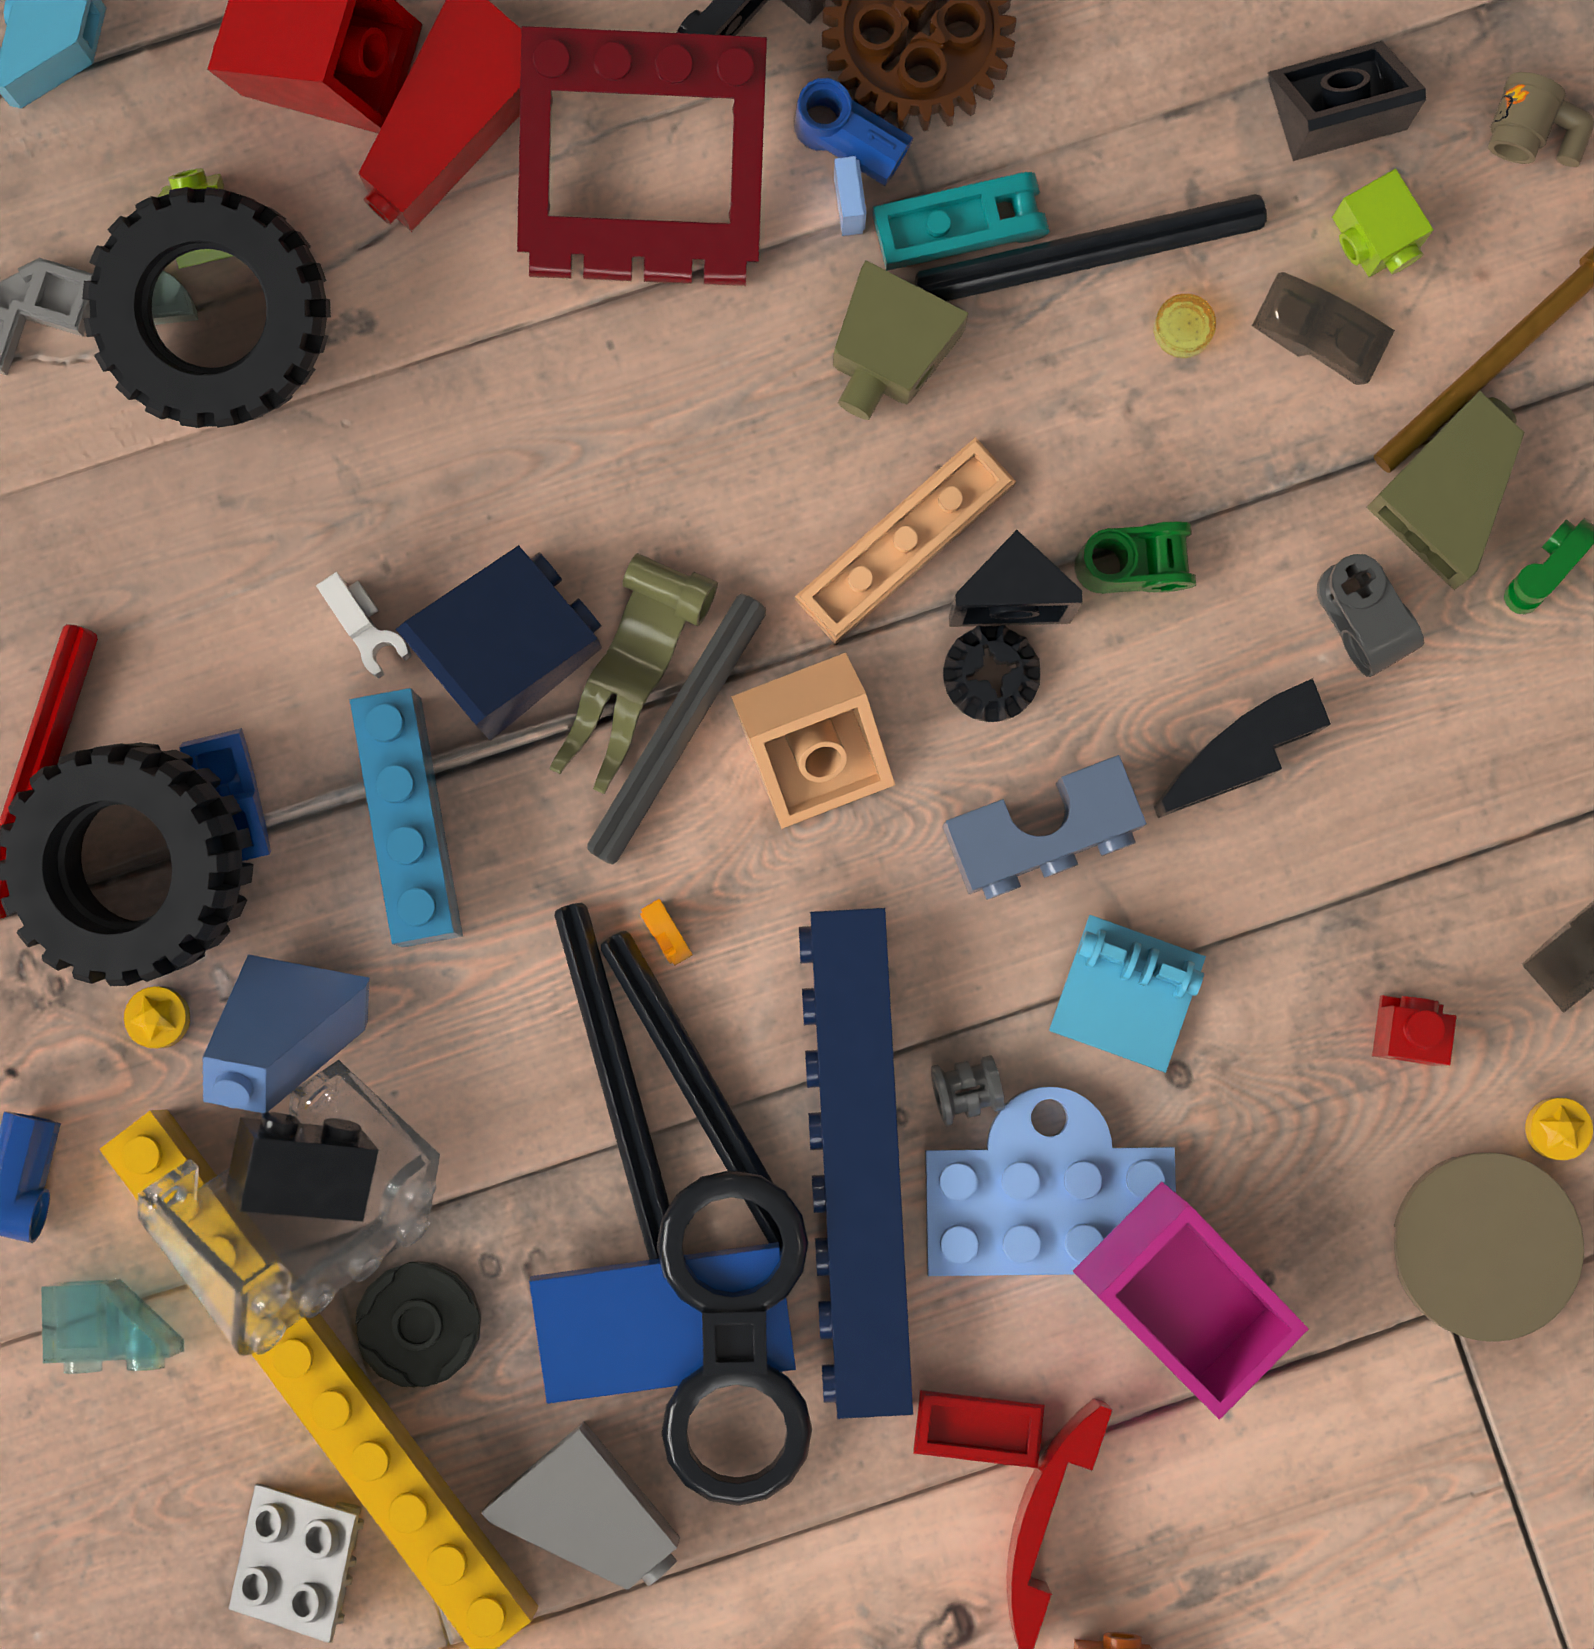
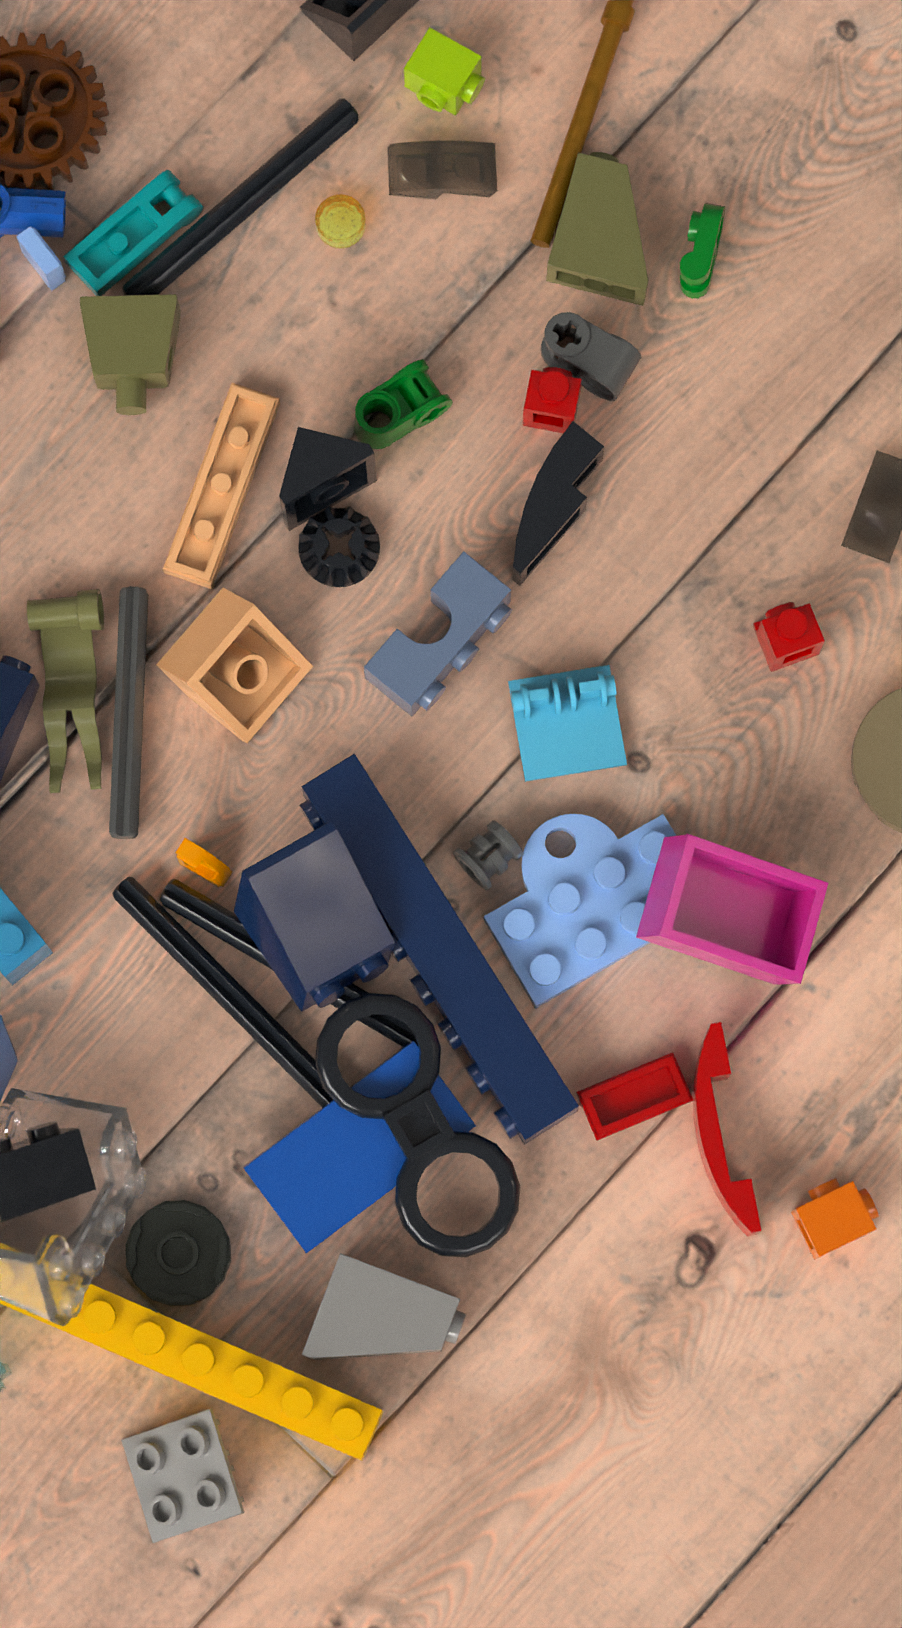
camera: 30 degrees left, 5 degrees down
(746, 1063) = (314, 918): none -> dark blue slope
(1302, 641) = (551, 399): none -> red brick

